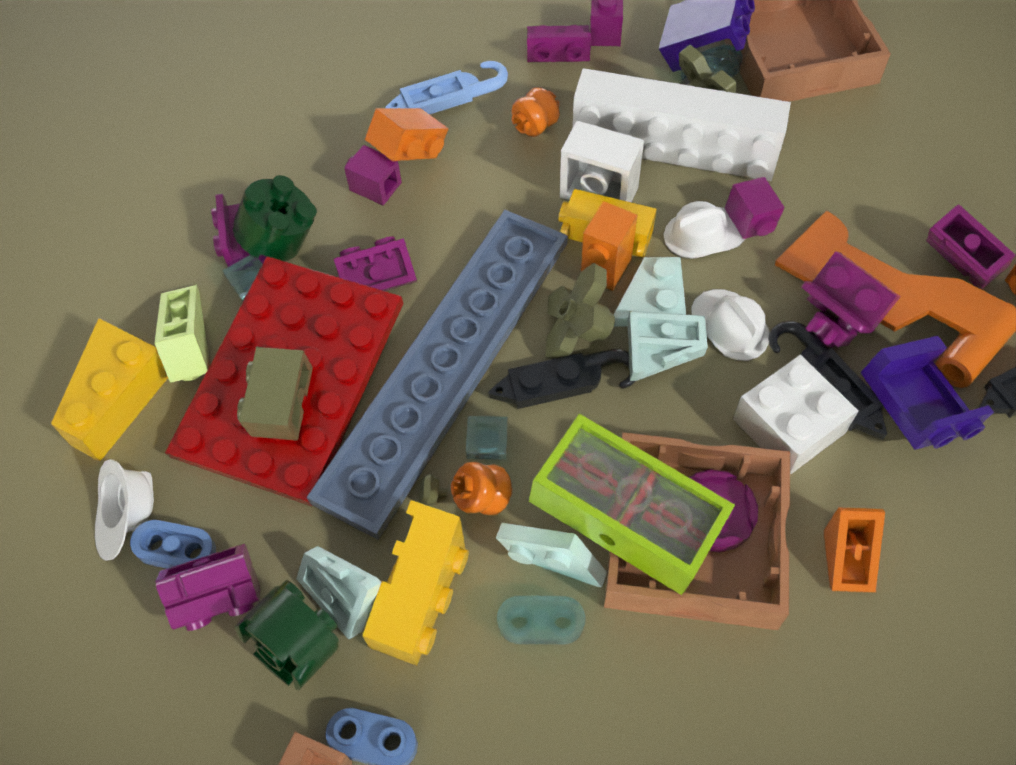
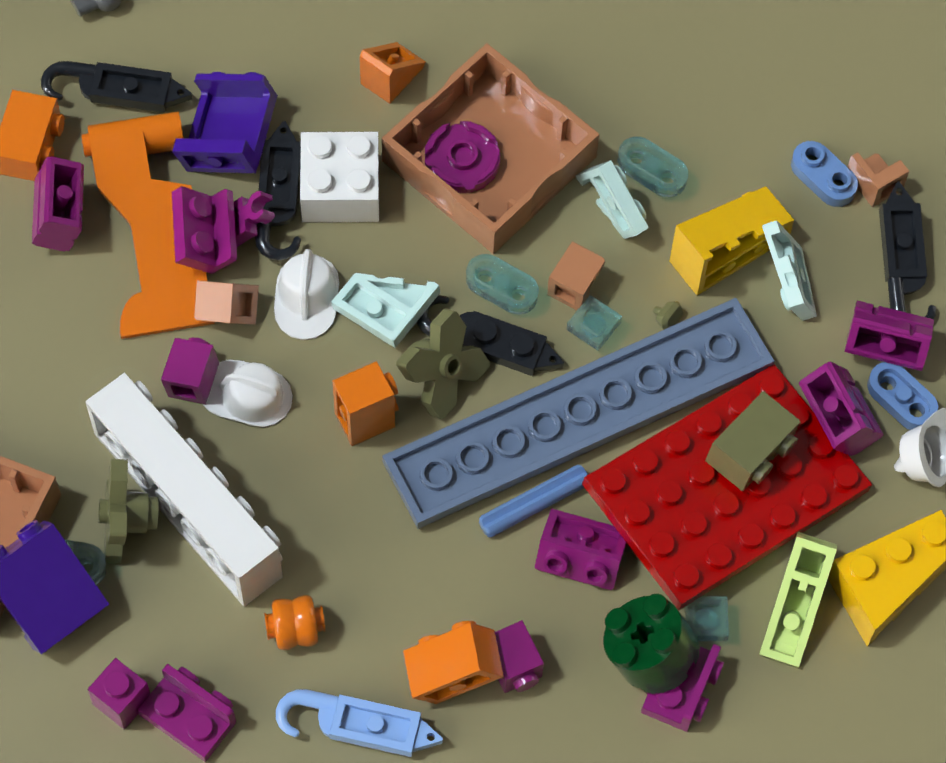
camera: 150 degrees left, 5 degrees up
(219, 486) = (840, 409): none -> magenta brick
(240, 694) = (903, 248): none -> black plate
(289, 635) = (849, 256): dark green brick -> none
(434, 283) = (532, 501): none -> medium blue axle
(481, 488) = (631, 275): orange piece -> none
(527, 454) = (574, 275): none -> nougat panel
(584, 205) = (334, 446): yellow brick -> none
(593, 409) = (504, 284): none -> clear light blue plate
(600, 162) = (299, 489): white brick -> none
(630, 503) = (545, 156): brick -> none
(654, 289) = (343, 352): light aqua wing -> none
(778, 268) = (226, 302): none -> panel

